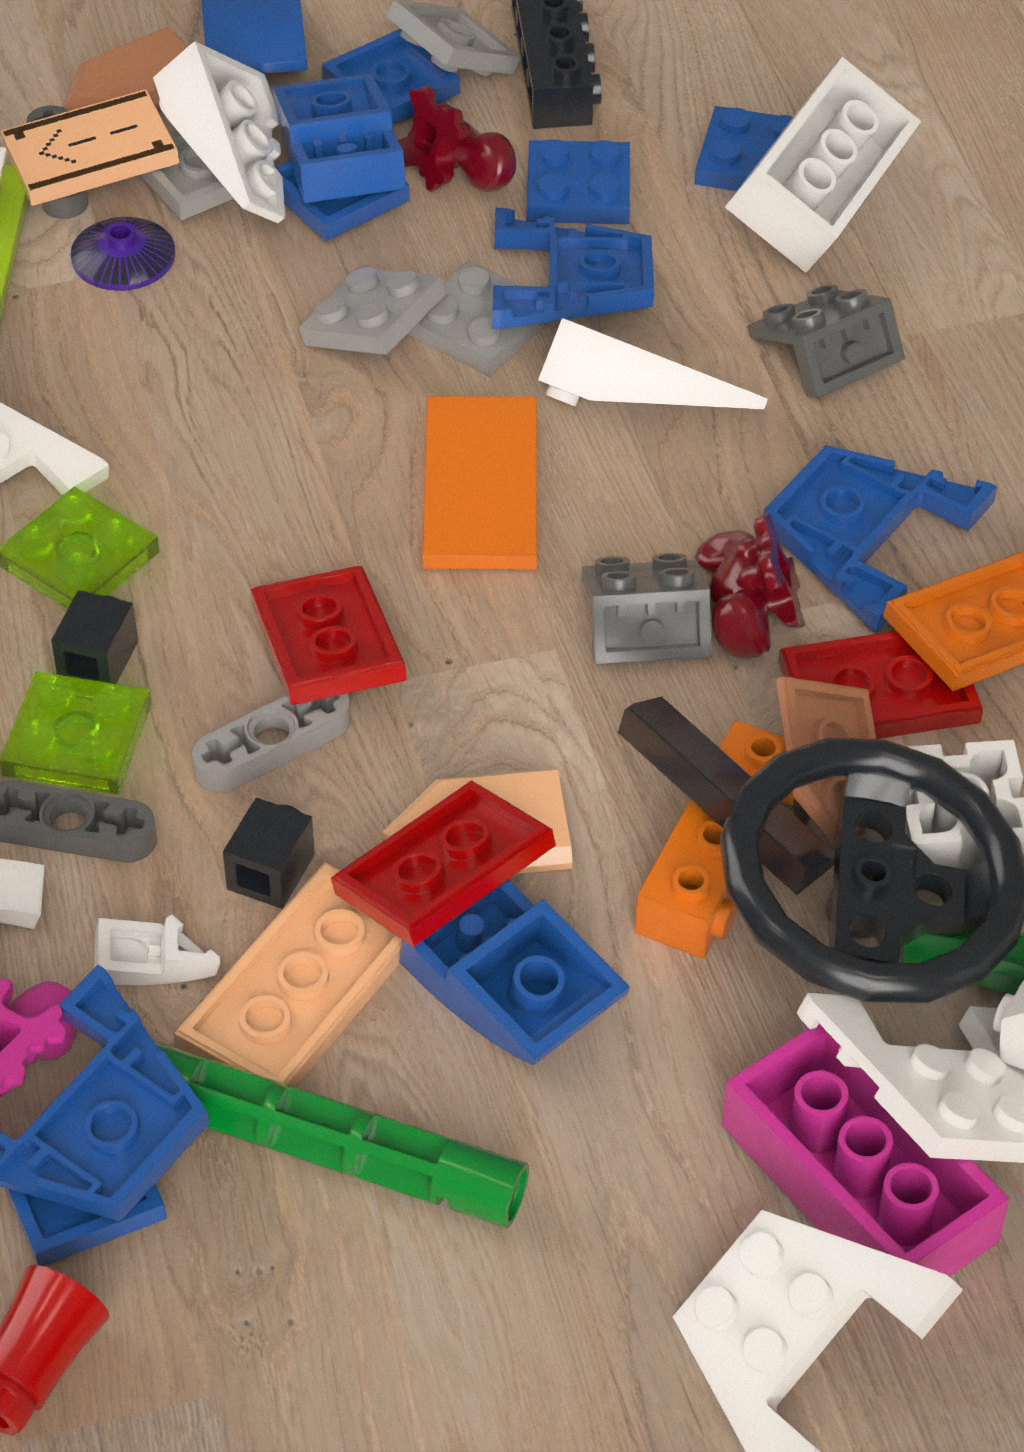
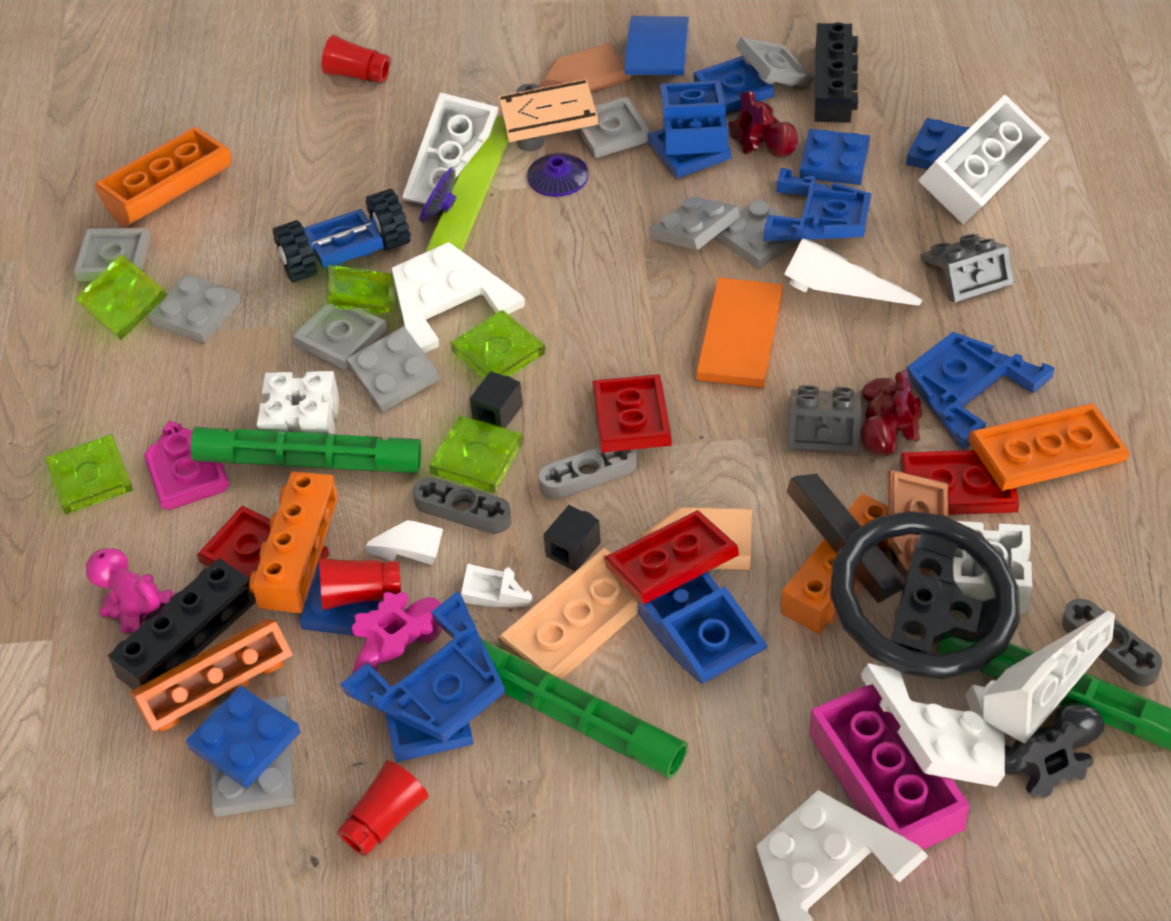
camera: 15 degrees right, 0 degrees up
(228, 122) = (629, 102): white wedge -> none

